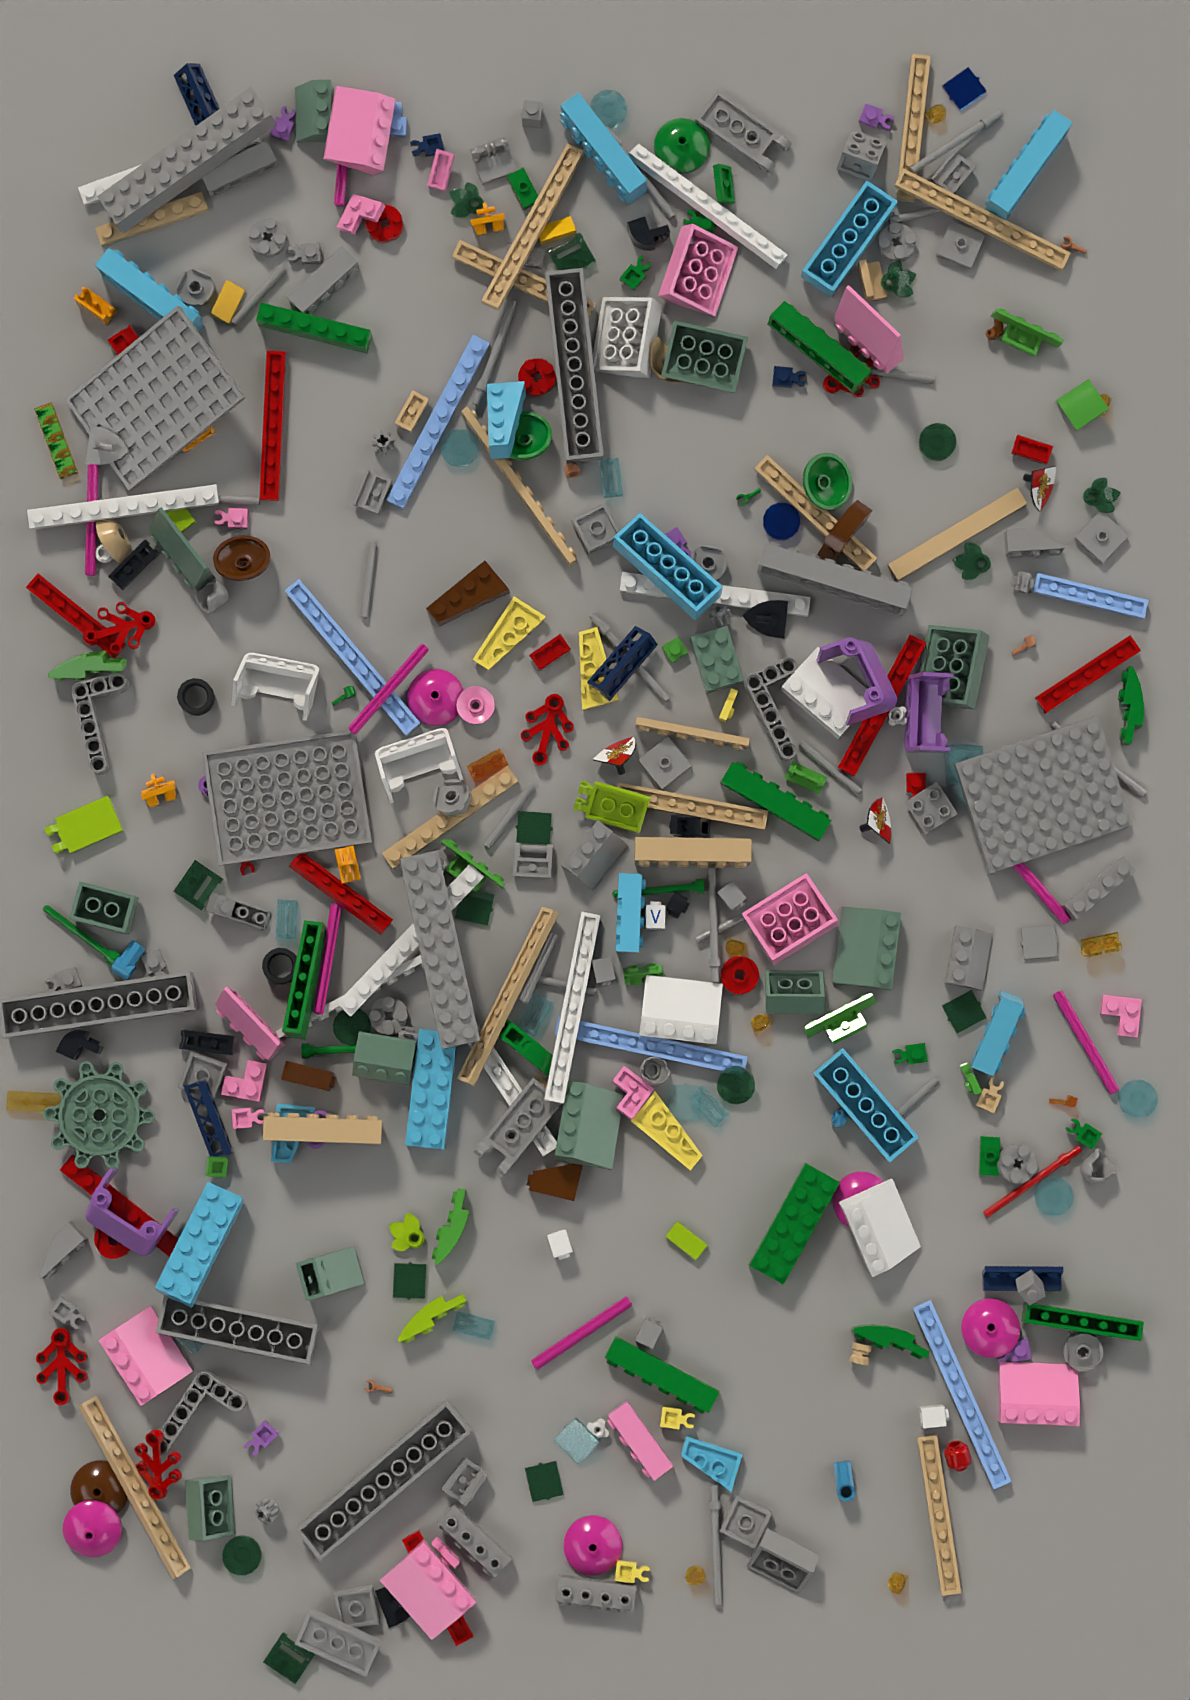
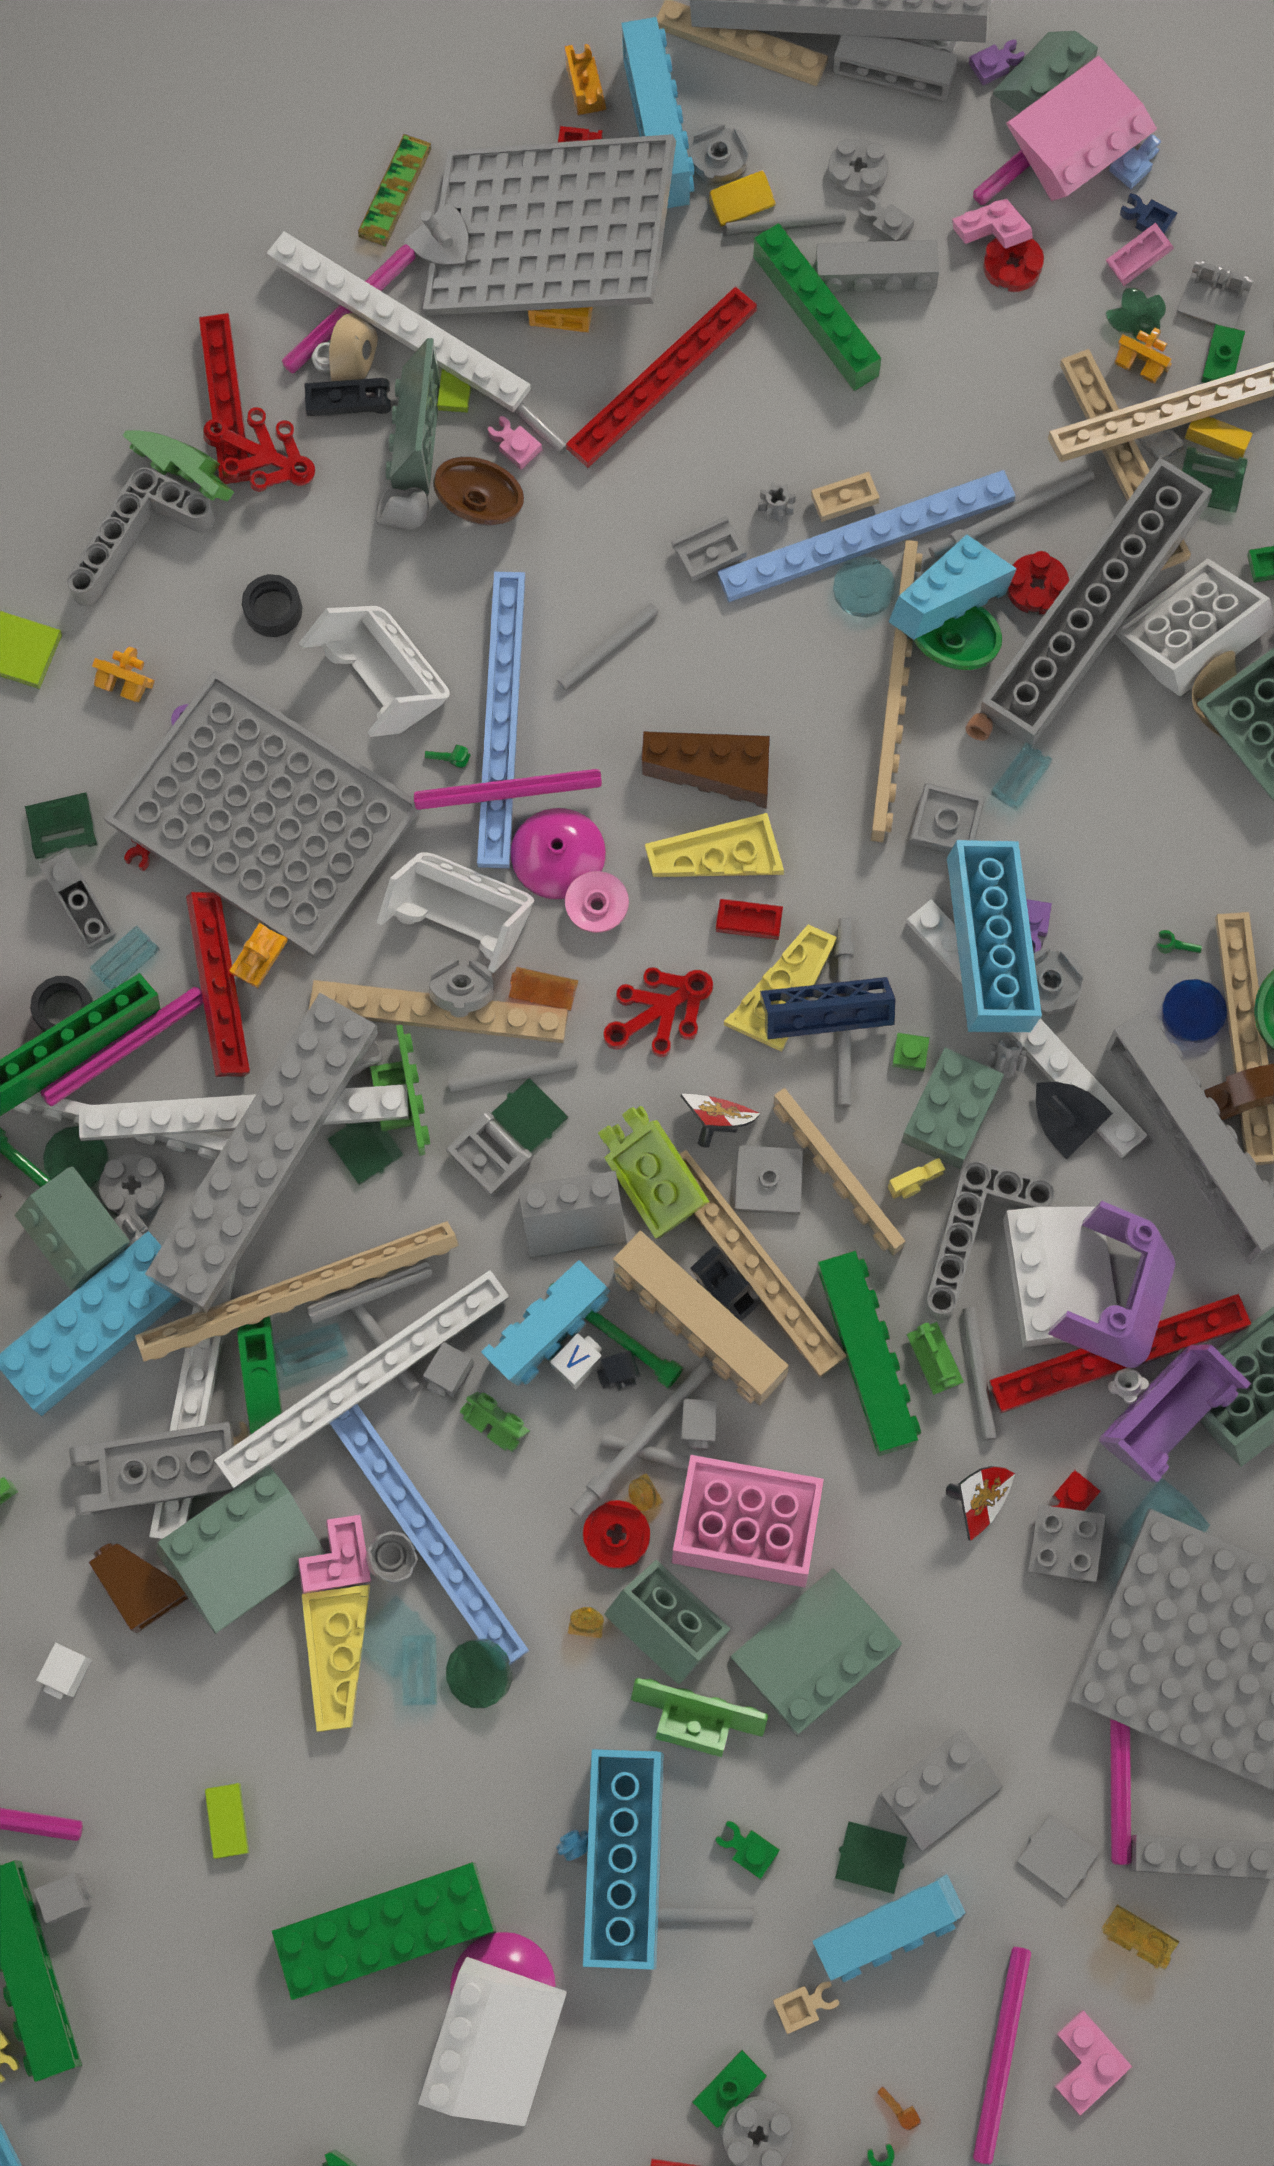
camera: 45 degrees right, 10 degrees down
(681, 1009) = (498, 1508): white slope -> none
(971, 1083) = (792, 1965): bright green plate -> none

